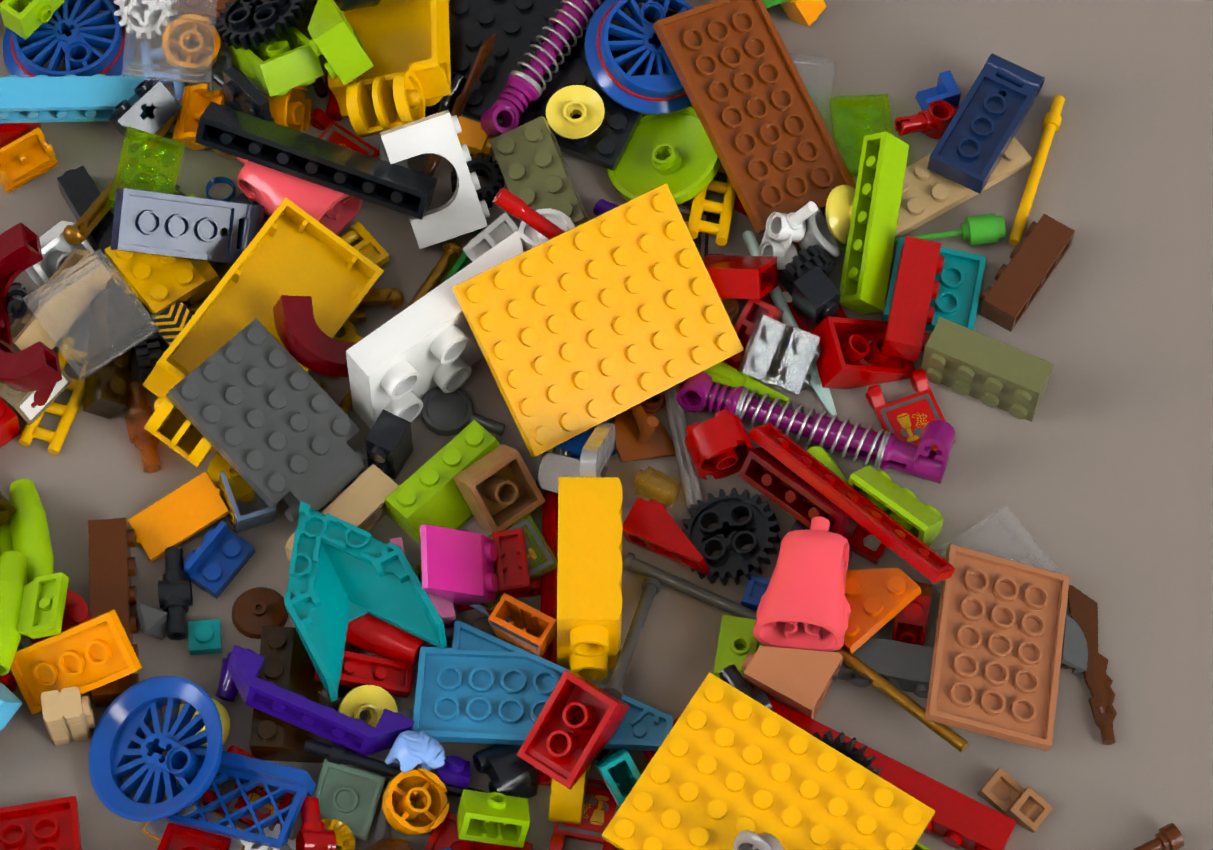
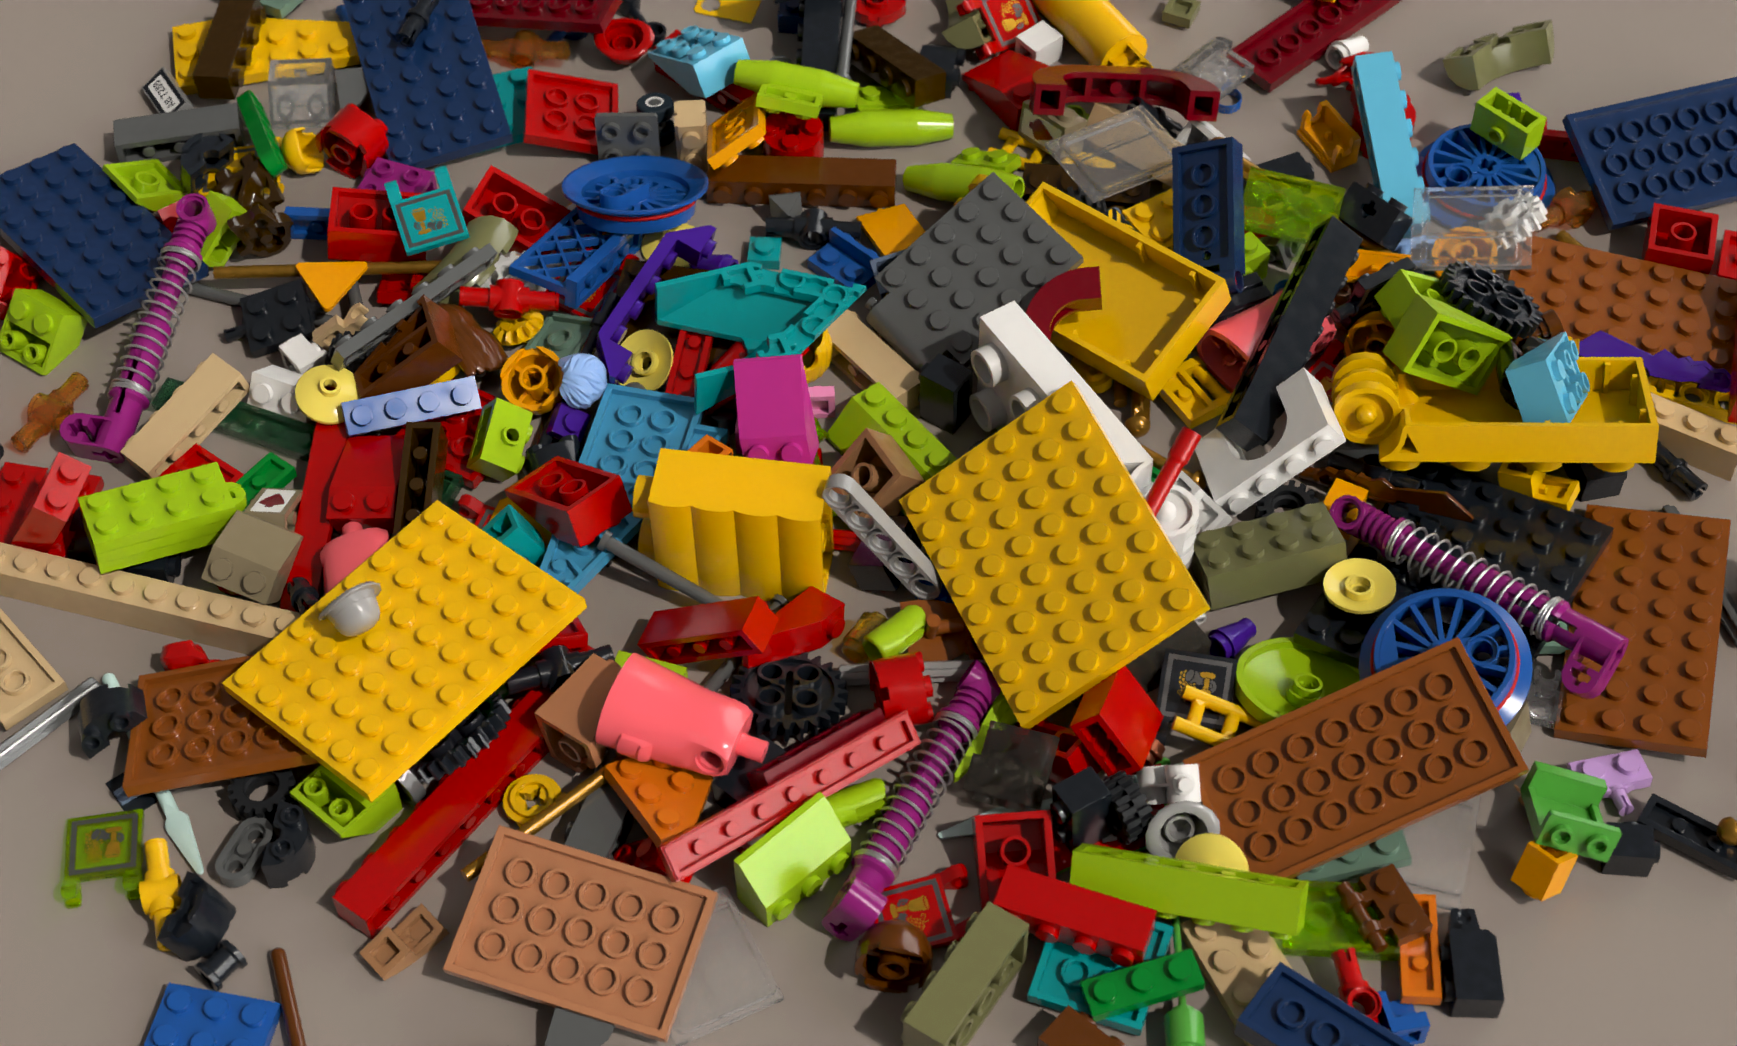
camera: 100 degrees right, 10 degrees down
(45, 764) = (636, 132): none -> dark grey plate
(104, 453) = (952, 179): none -> lime plate
(664, 454) = (896, 633): none -> lime arm
(694, 593) = (709, 631): none -> red brick
(854, 94) = (1393, 904): none -> reddish brown plate
(875, 720) = (525, 789): none -> yellow gear
(887, 51) = (1471, 968): none -> black hinge
(897, 83) = (1421, 962): none -> orange plate
(958, 260) = (1142, 985): none -> green plate
(963, 415) = (893, 956): none -> reddish brown cylinder

